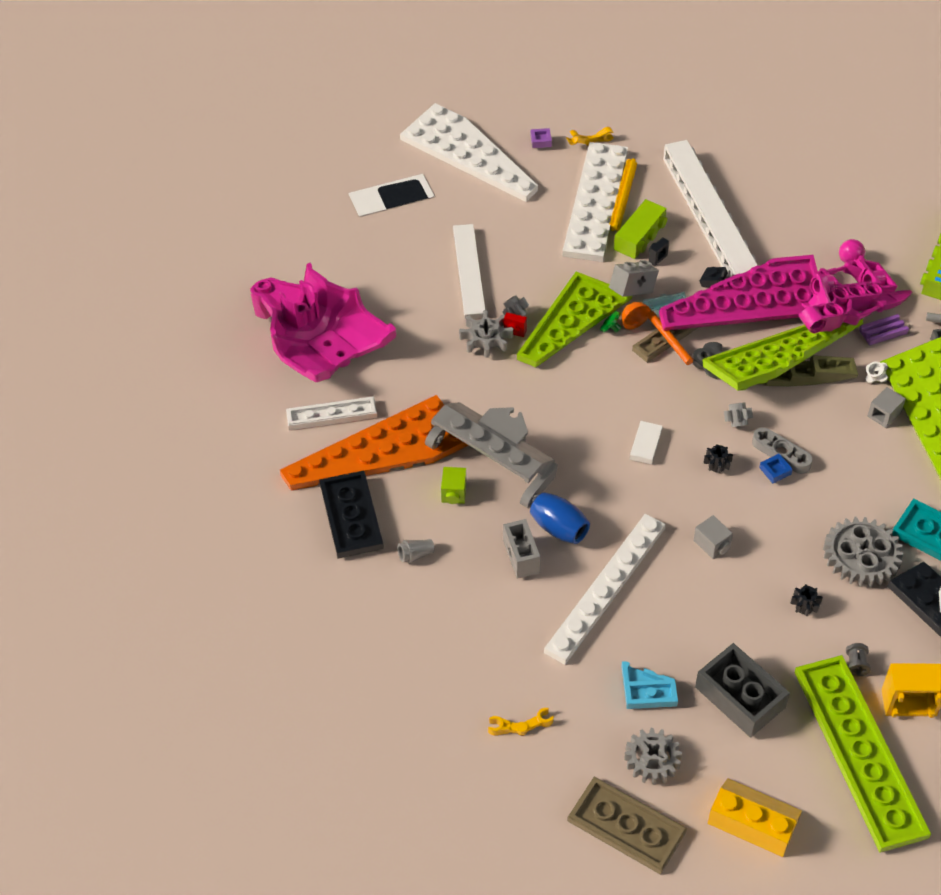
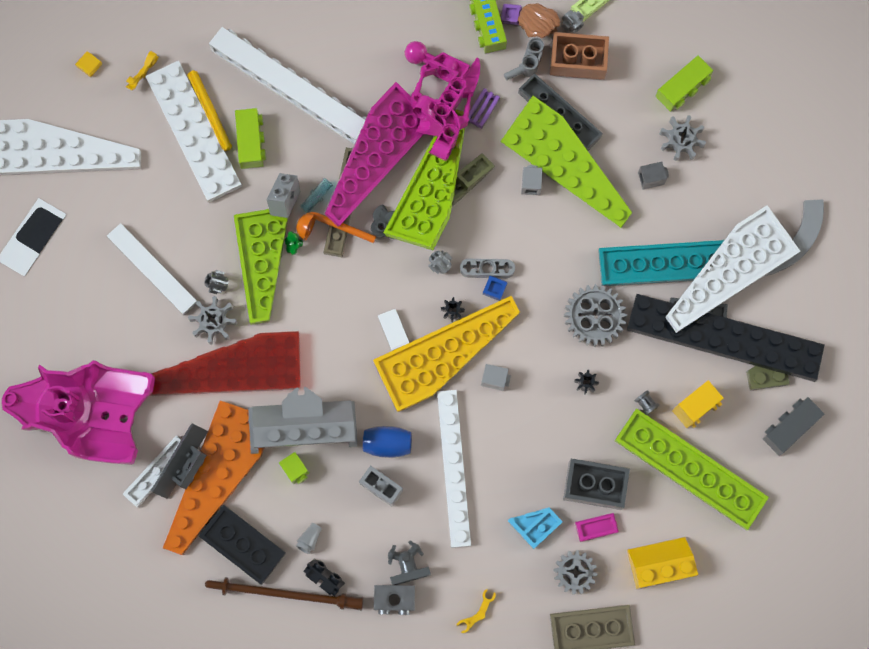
camera: 40 degrees left, 25 degrees up
(358, 414) = (183, 463): none -> dark grey bracket
(398, 581) = (331, 581): none -> black hinge
(398, 620) = (341, 601): none -> reddish brown bar
(445, 639) = (383, 592): none -> flat silver brick
(471, 380) = (250, 365): none -> clear red wing
(485, 640) = (407, 564): none -> dark grey piece
(517, 322) = (227, 296): red plate -> none
(541, 138) = (104, 98): medium lavender plate -> none
(549, 111) = (88, 64): none -> yellow tile
(658, 251) = (277, 151): black plate -> none
(661, 487) = (428, 363): none -> yellow wing
(711, 735) = (596, 527): none -> dark pink tile
(713, 275) = (334, 146): black plate -> none
(875, 367) = (499, 153): white plate -> none

